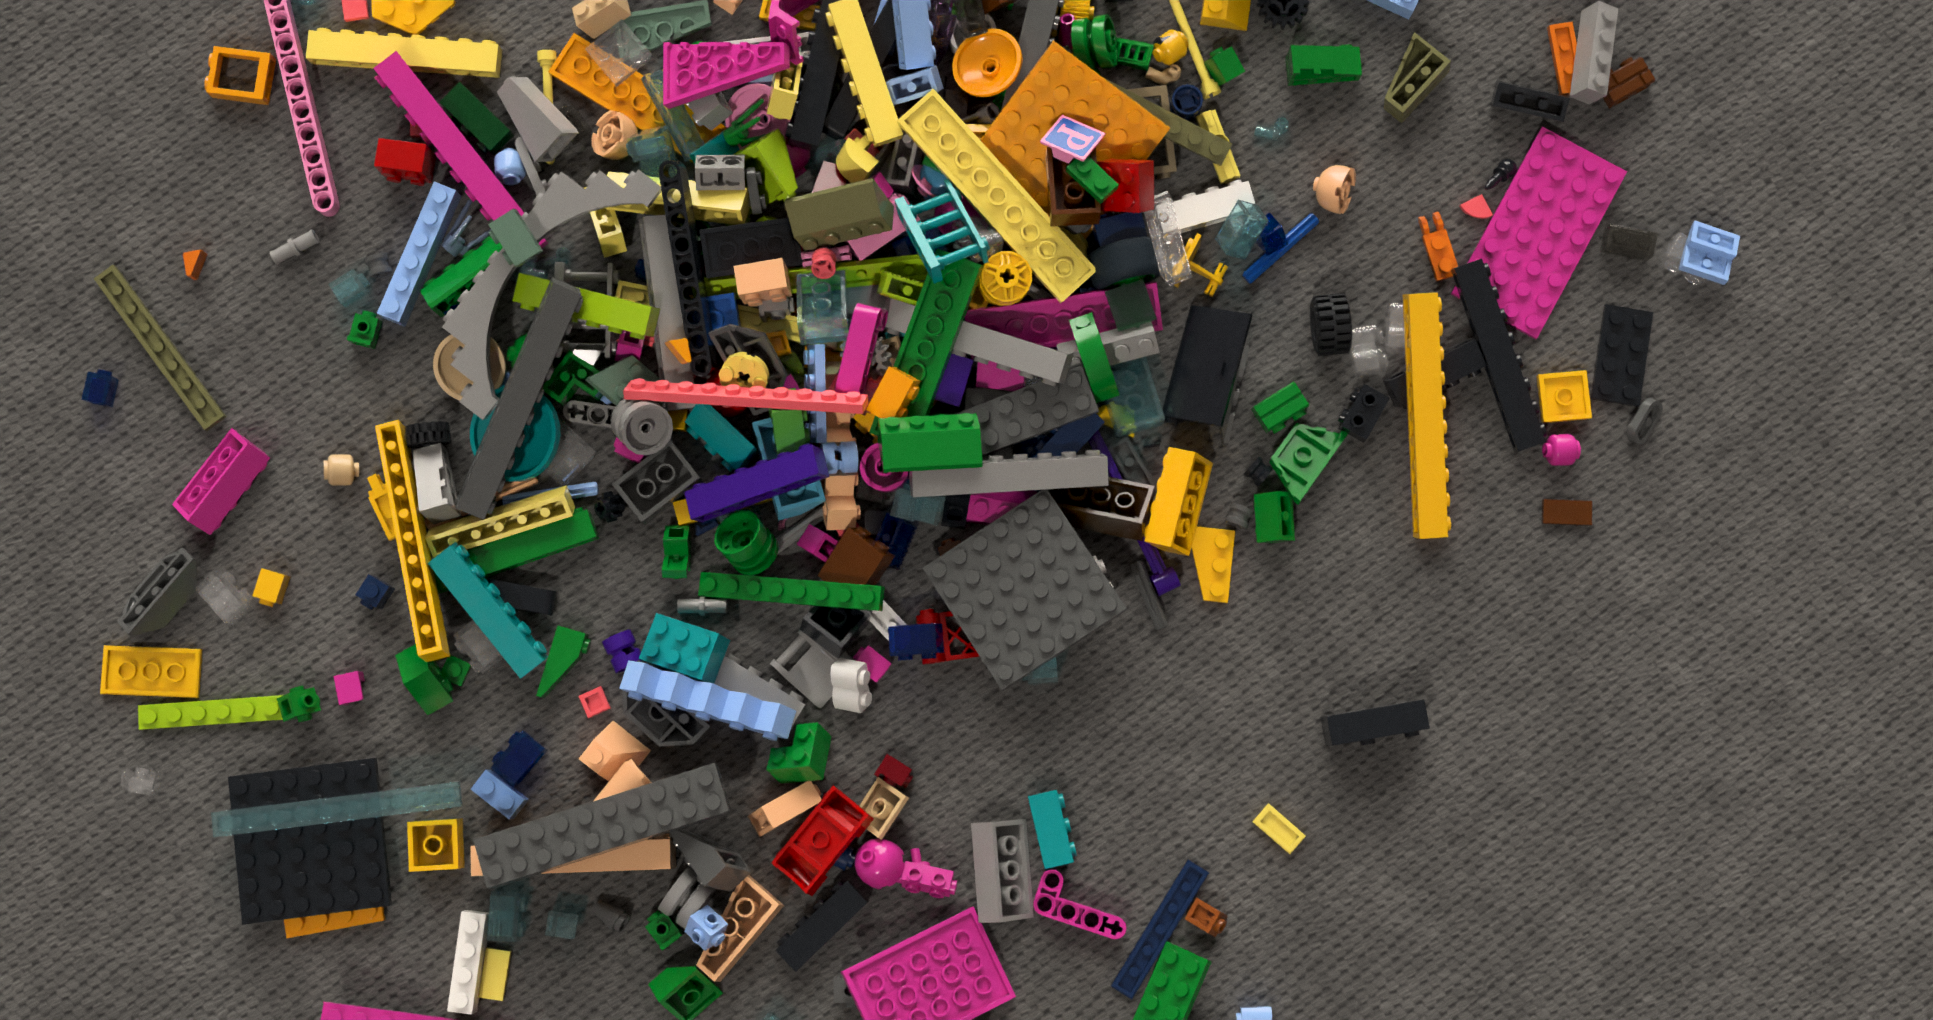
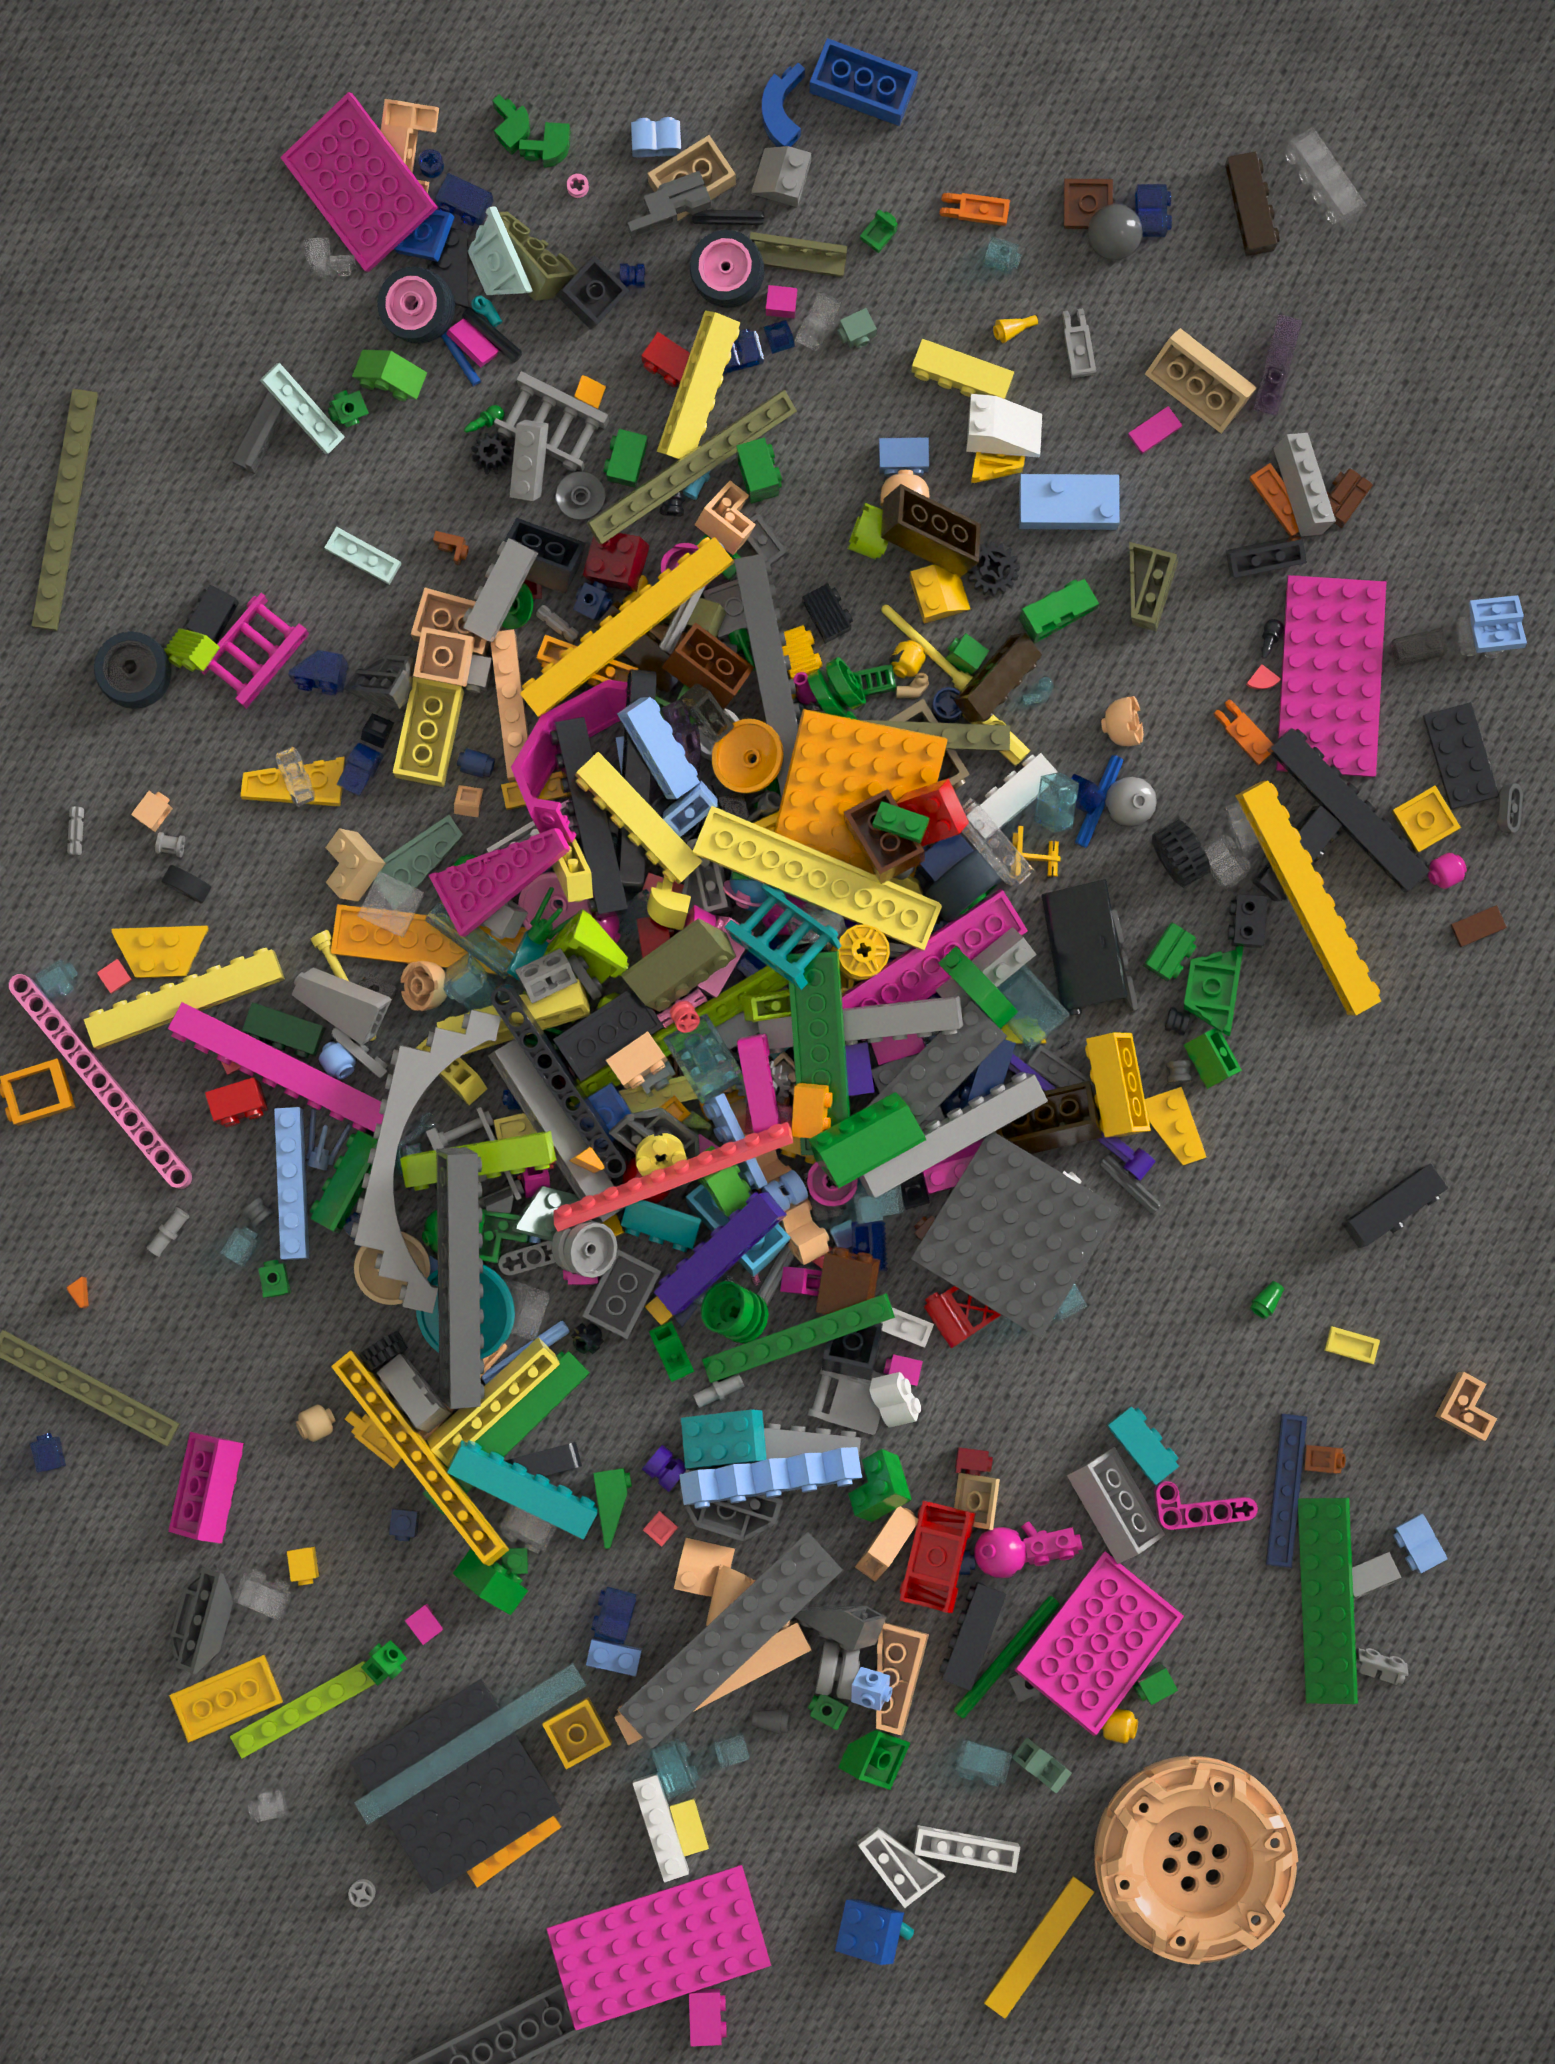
camera: 30 degrees left, 0 degrees up
(180, 898) = (359, 1897): none -> light grey wheel
(515, 238) = (387, 1129): sand green brick -> none
(842, 958) = (1006, 1657): none -> green axle
(916, 640) = (935, 1329): clear blue brick -> none
(1071, 139) = (864, 794): piece -> none
(1130, 305) = (989, 923): clear green piece -> none
(1222, 753) = (1267, 1300): none -> green cone
(1241, 97) = (998, 678): none -> dark brown brick
(1308, 260) = (1131, 801): none -> light grey cylinder
(1347, 931) = (1460, 1410): none -> light nougat brick

